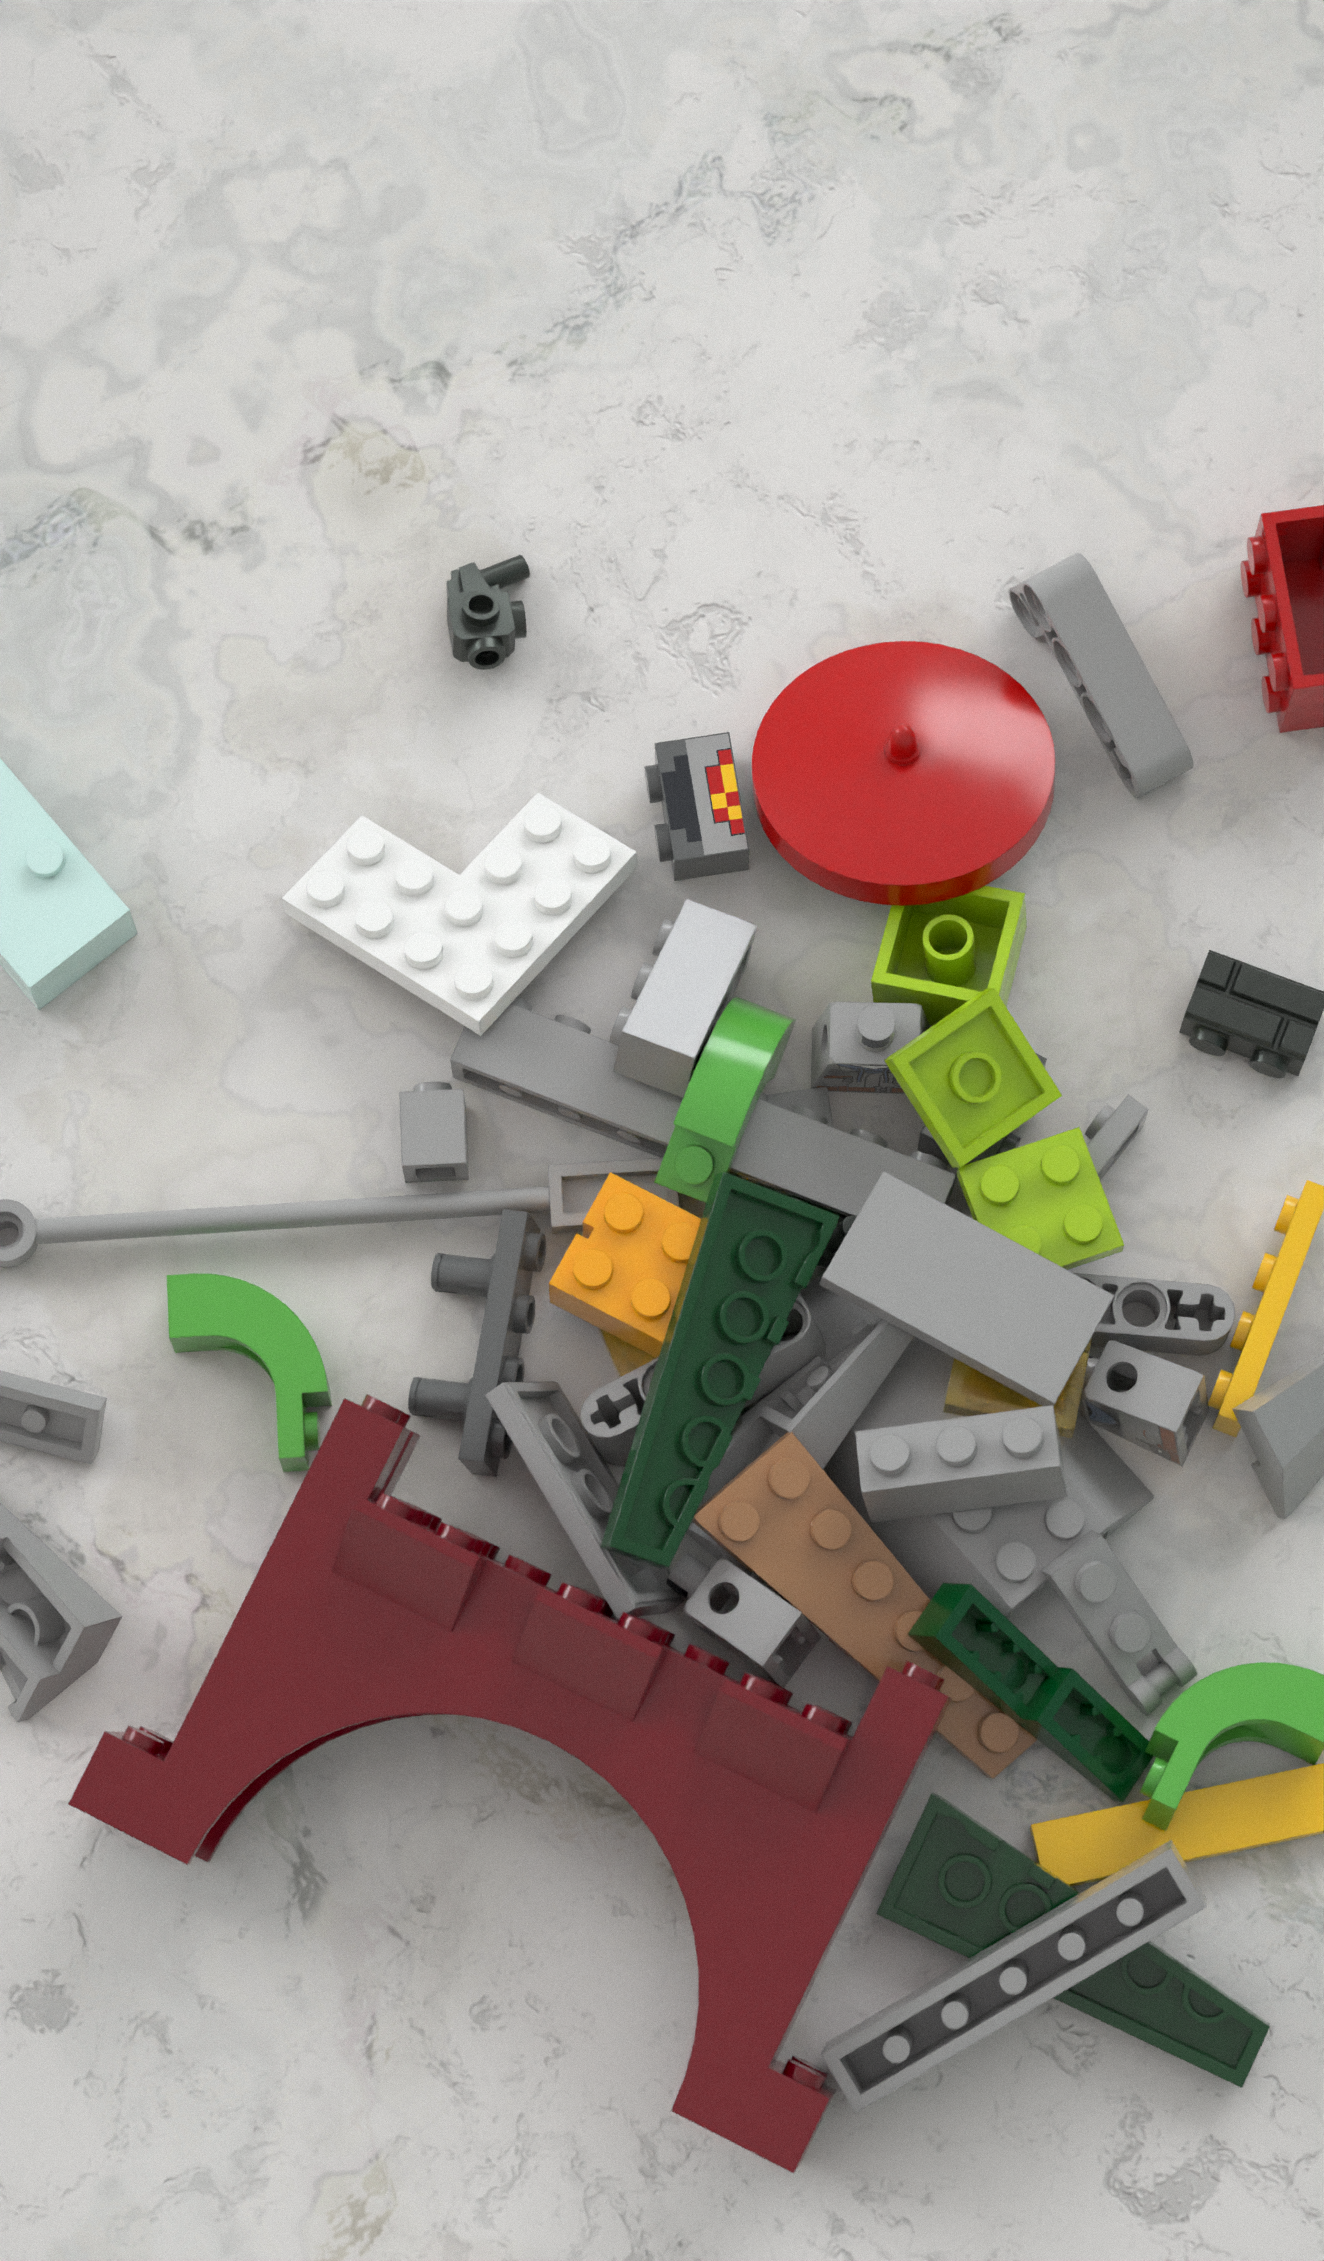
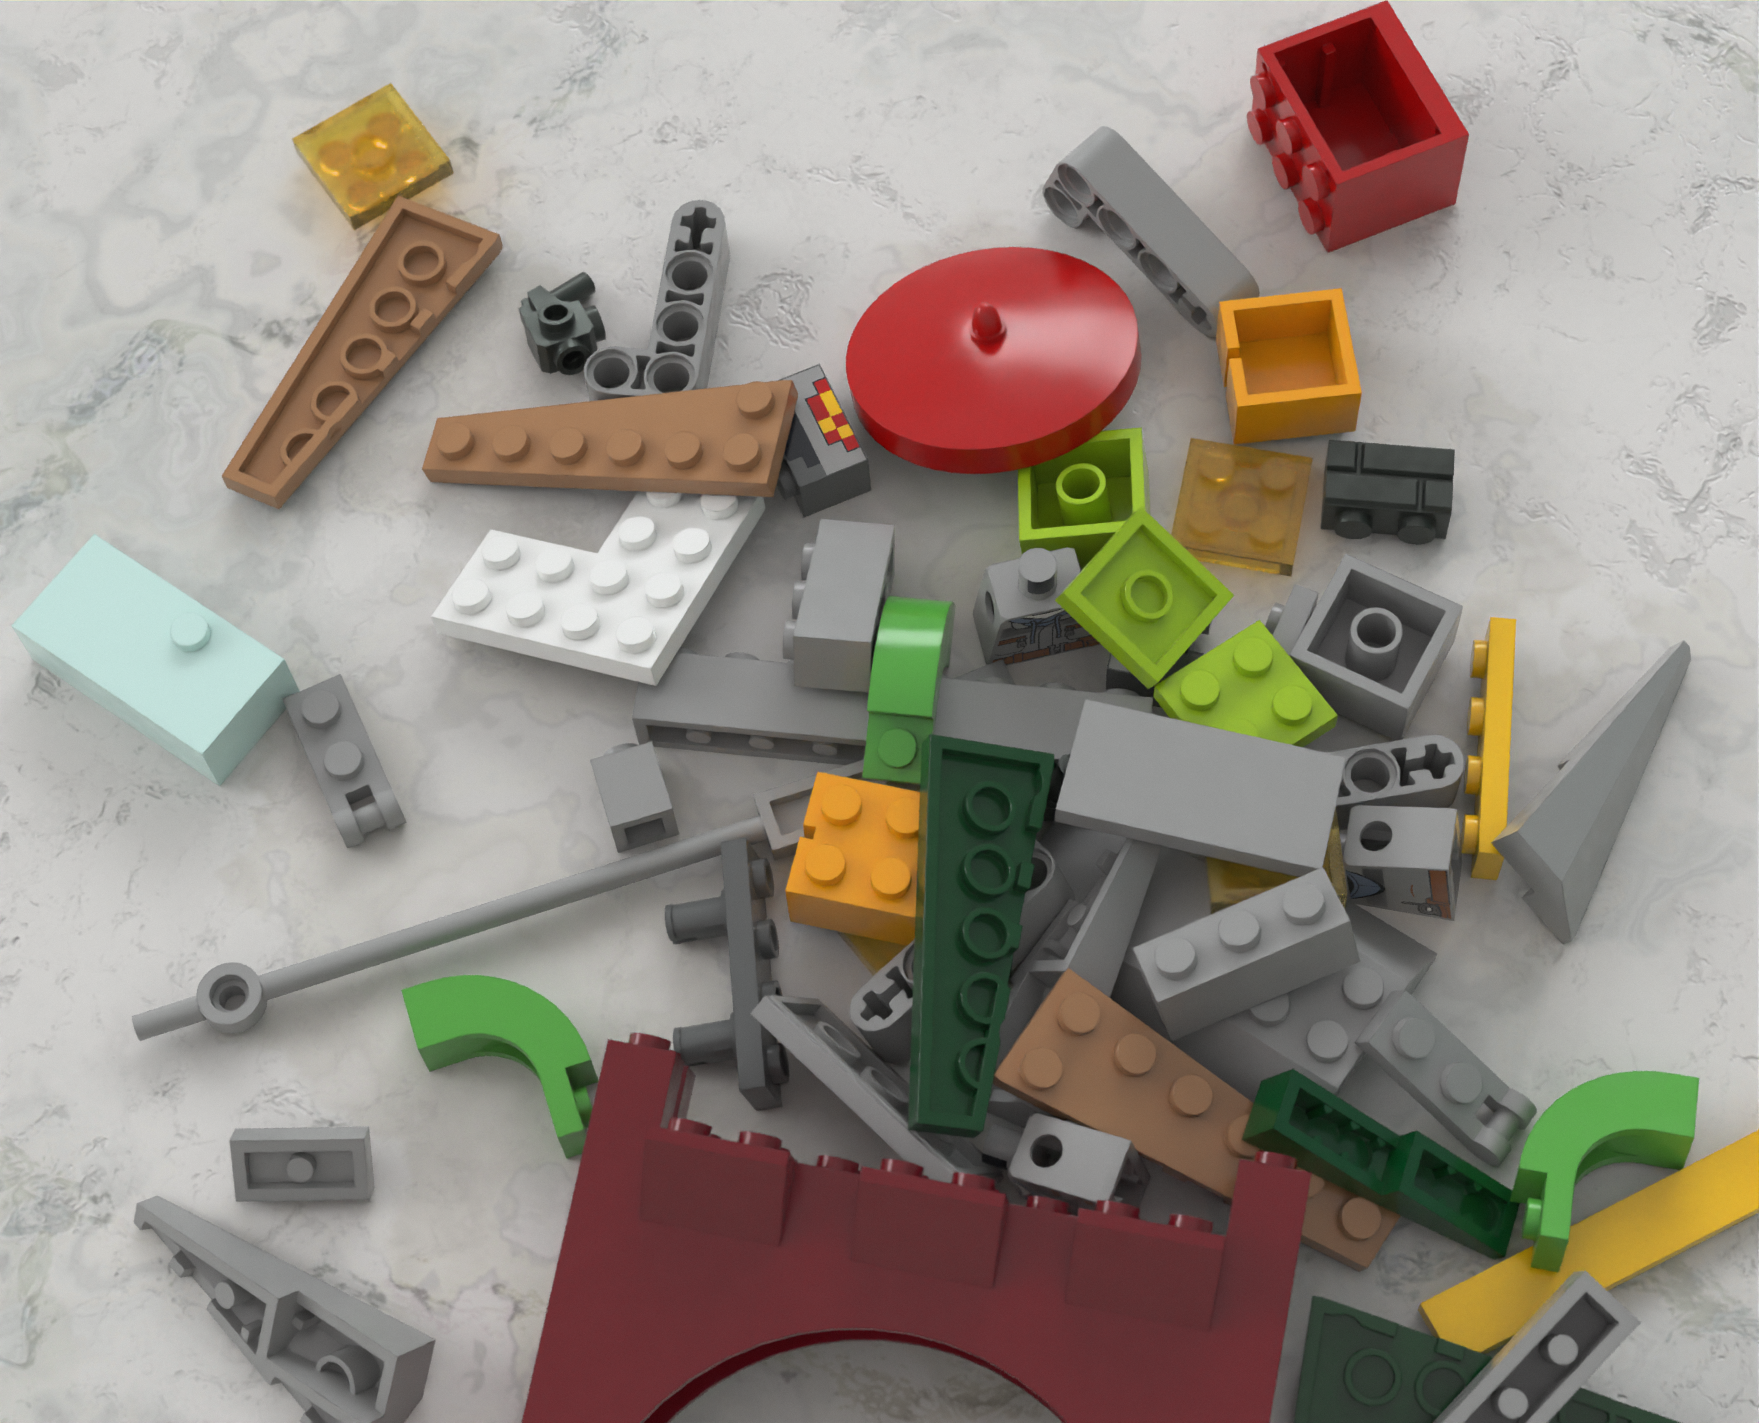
camera: 10 degrees left, 10 degrees down
(164, 1017) = (343, 759): none -> light grey plate
(306, 551) = (377, 320): none -> medium nougat wing
(339, 365) = (372, 156): none -> clear yellow plate
(550, 774) = (663, 442): none -> medium nougat wing
(601, 632) = (676, 315): none -> light grey beam
(1106, 988) = (1242, 506): none -> clear yellow plate
(1186, 1178) = (1376, 645): none -> light grey brick
(1194, 858) = (1288, 366): none -> light orange piece

